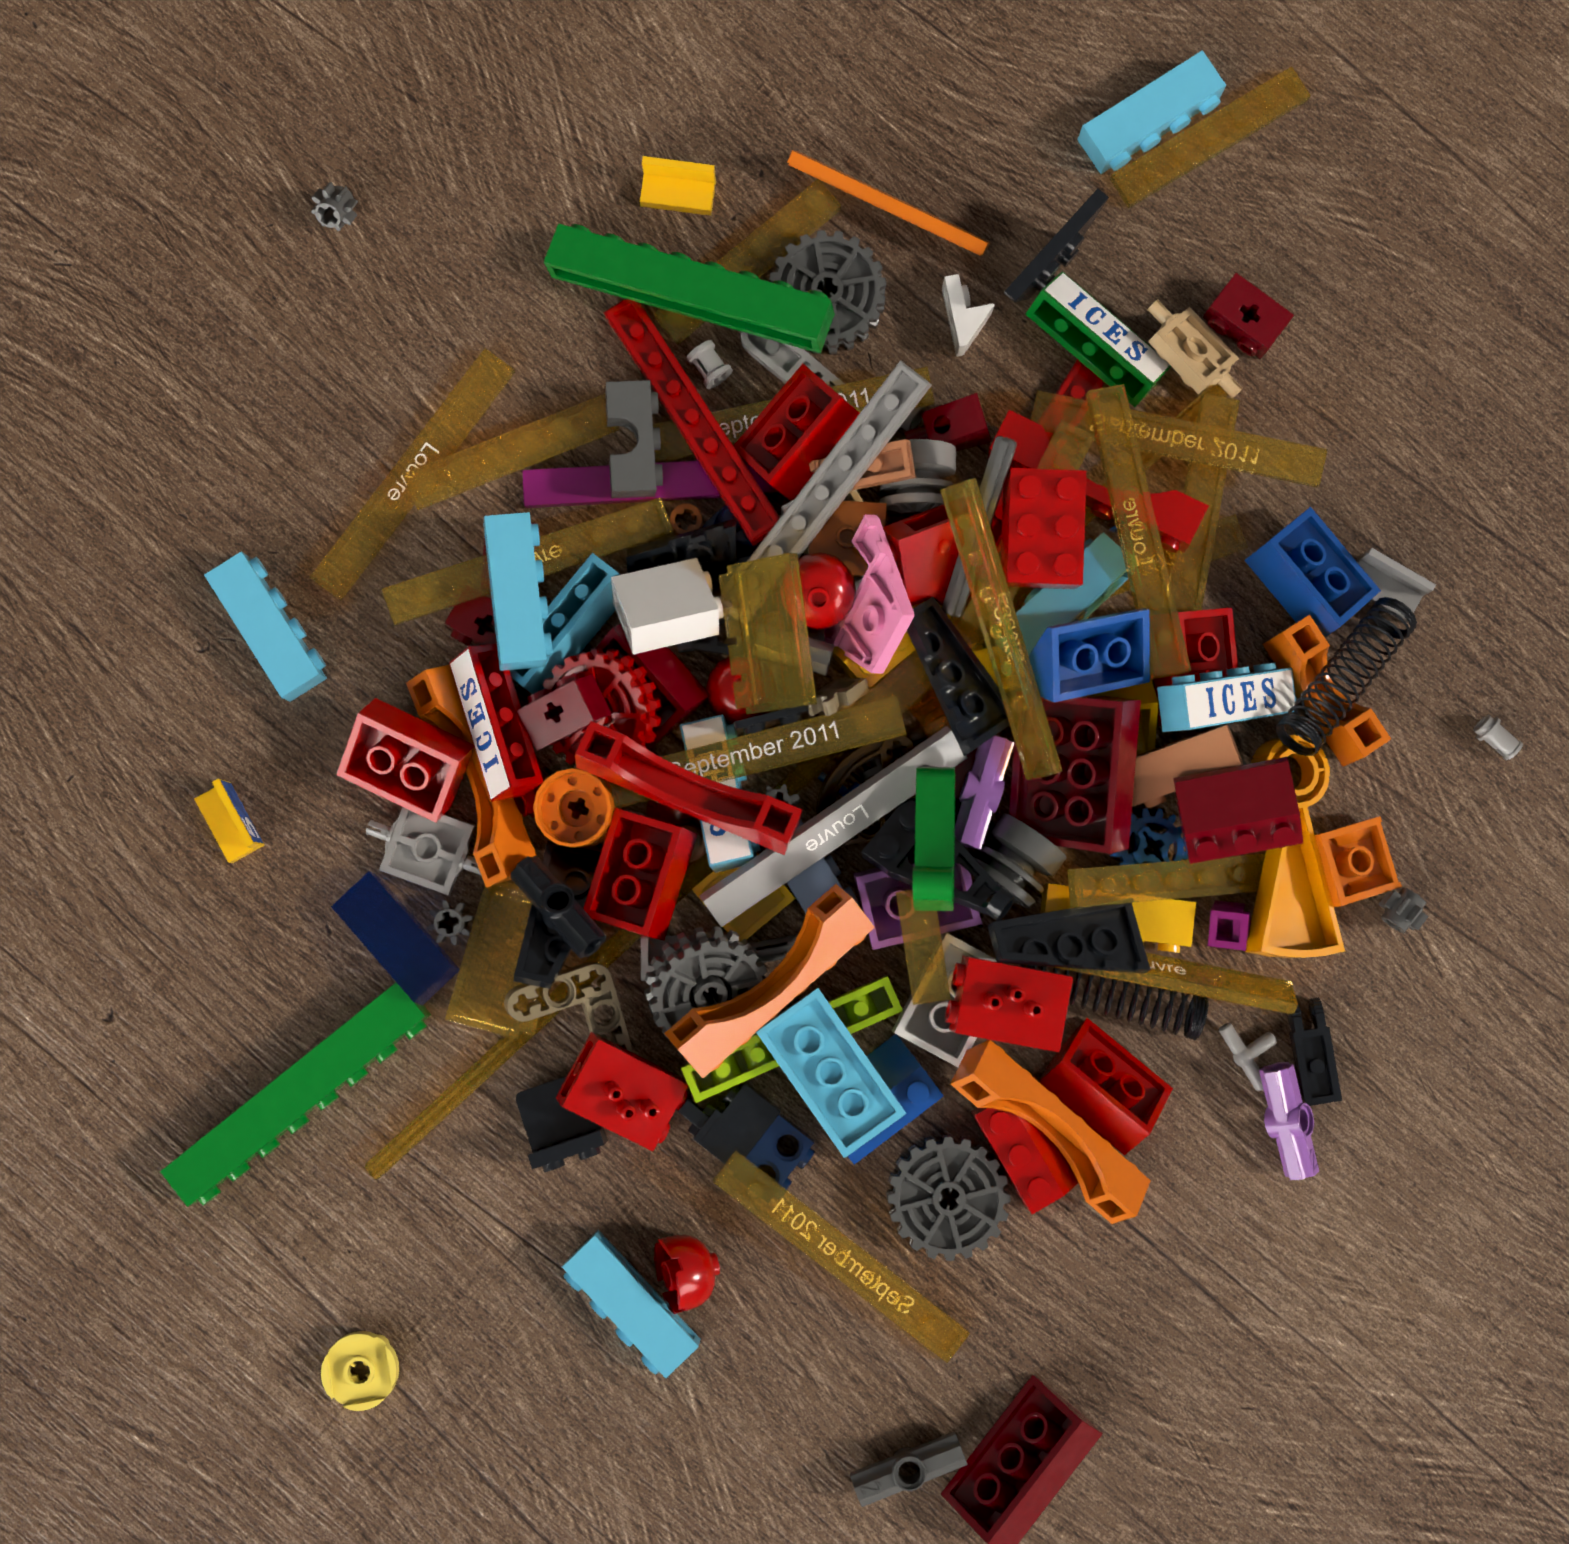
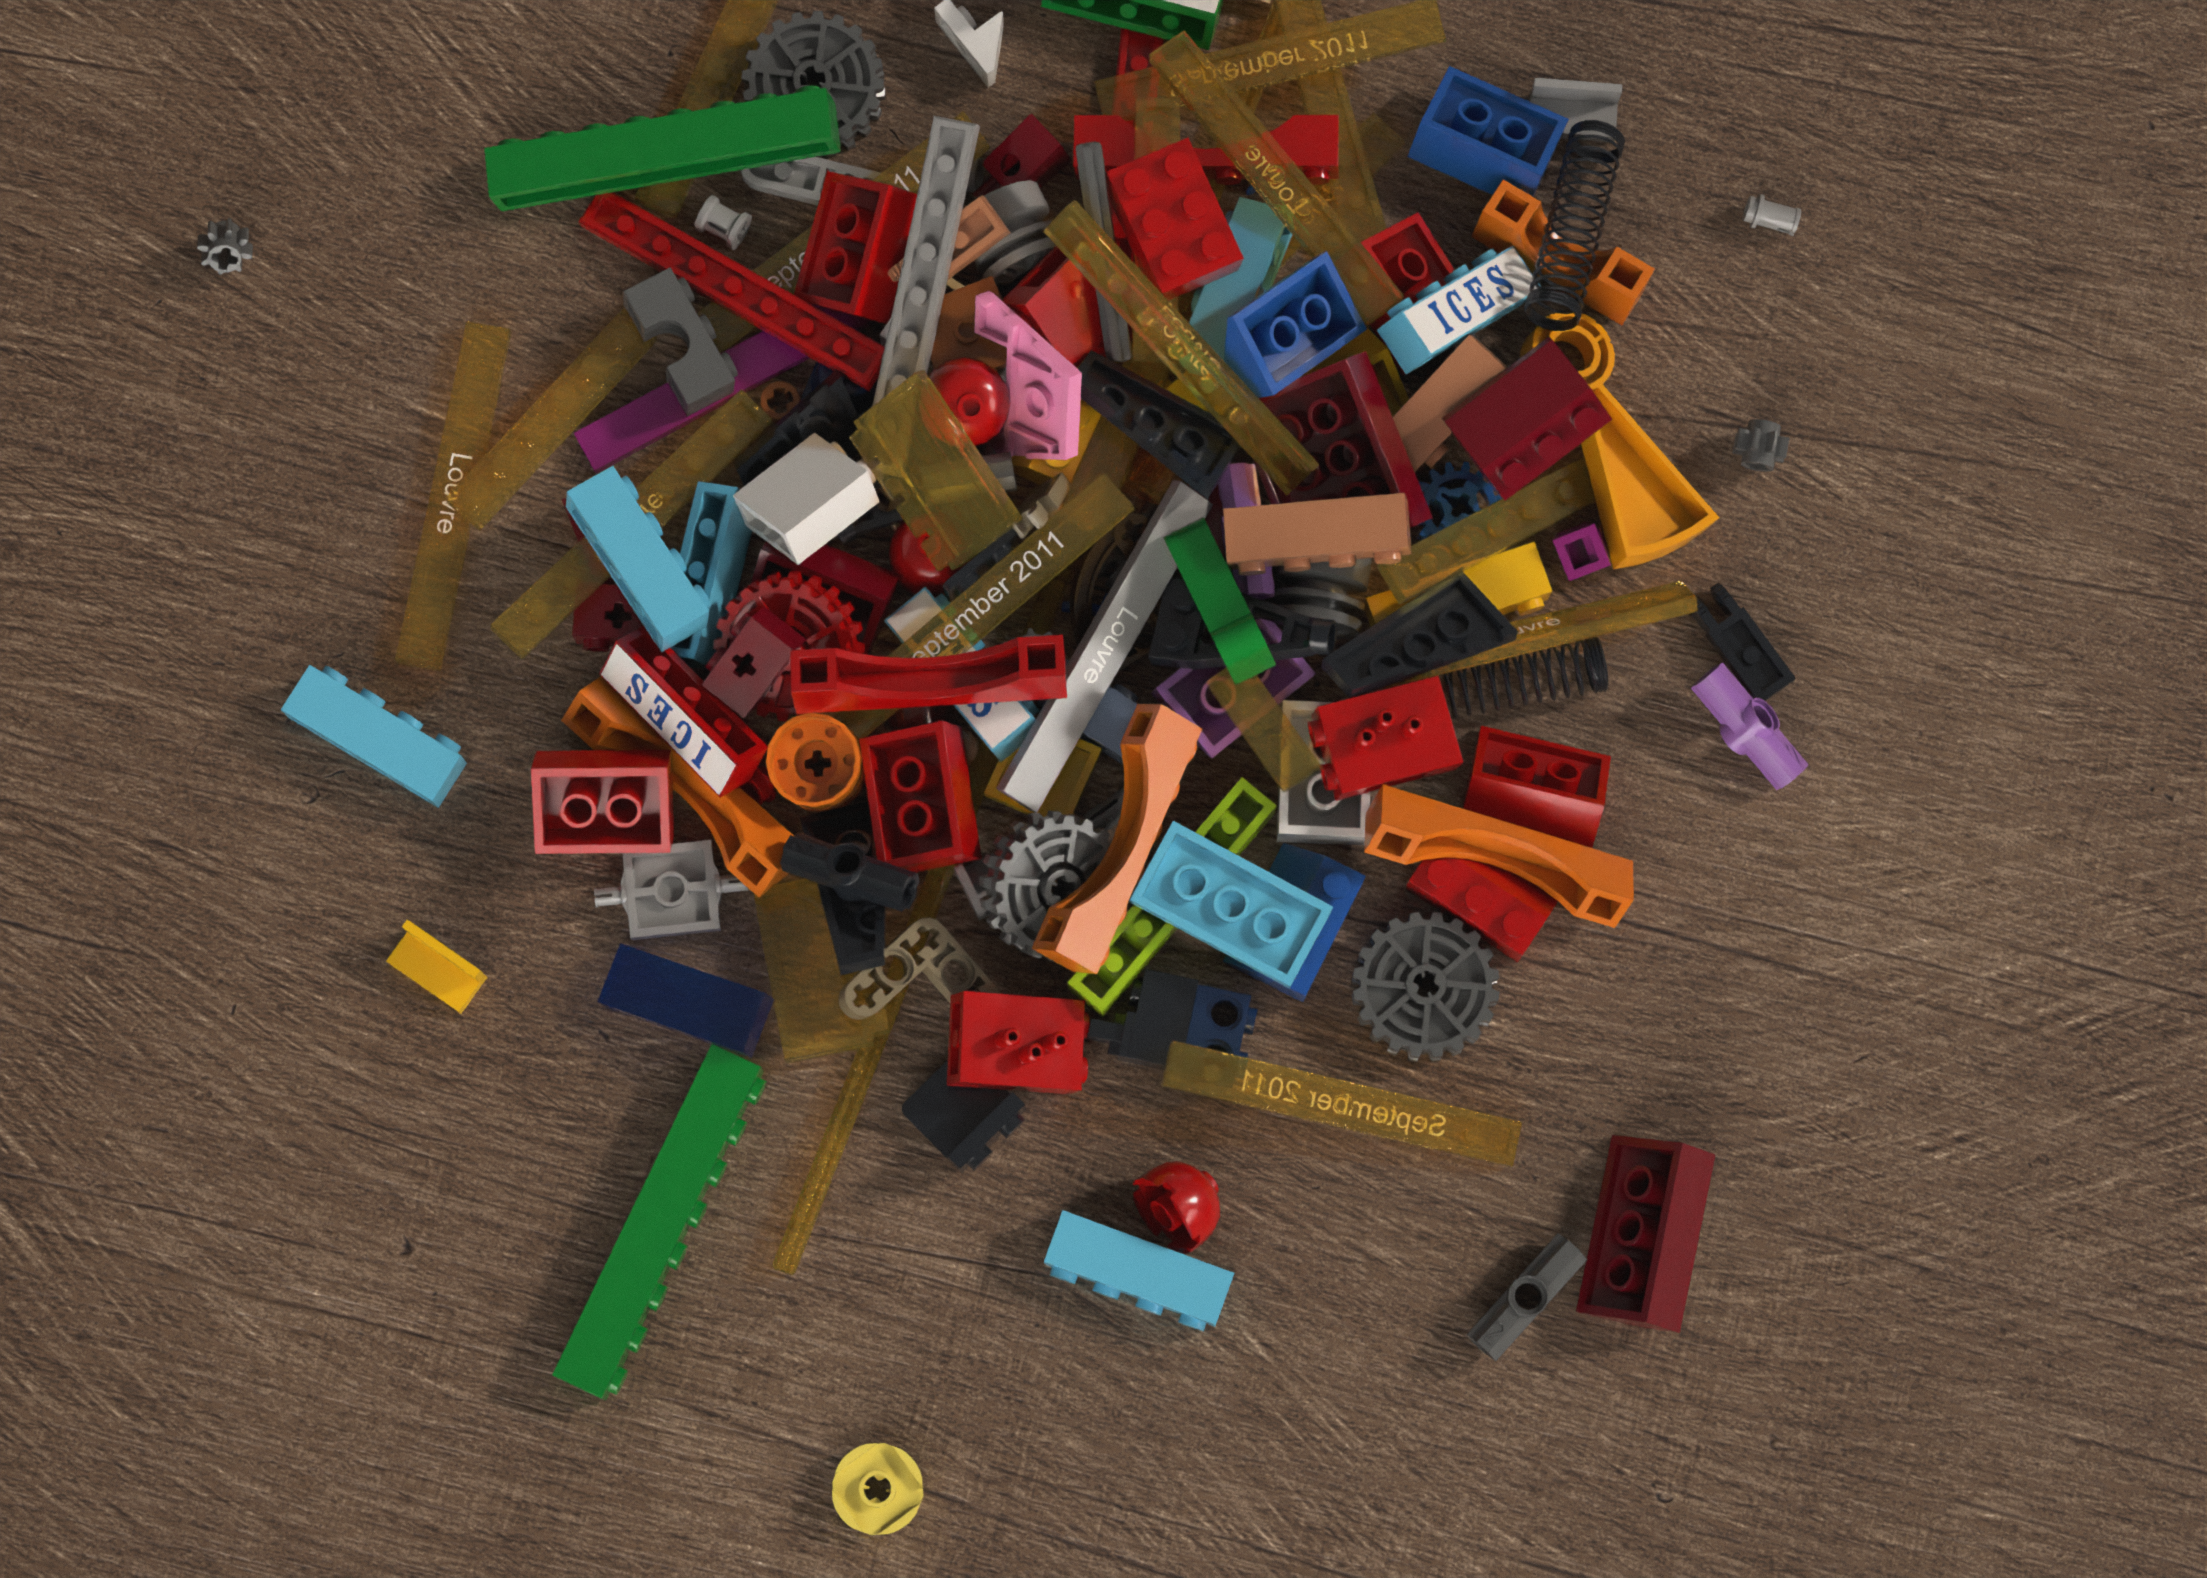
camera: 25 degrees left, 5 degrees down
(442, 916) = (740, 945): dark grey gear -> none
(677, 185) = (593, 47): yellow panel -> none
(1034, 823) = (1317, 532): none -> nougat brick
(1245, 1055) = (1670, 682): light grey piece -> none
(1357, 862) = (1685, 417): orange slope -> none

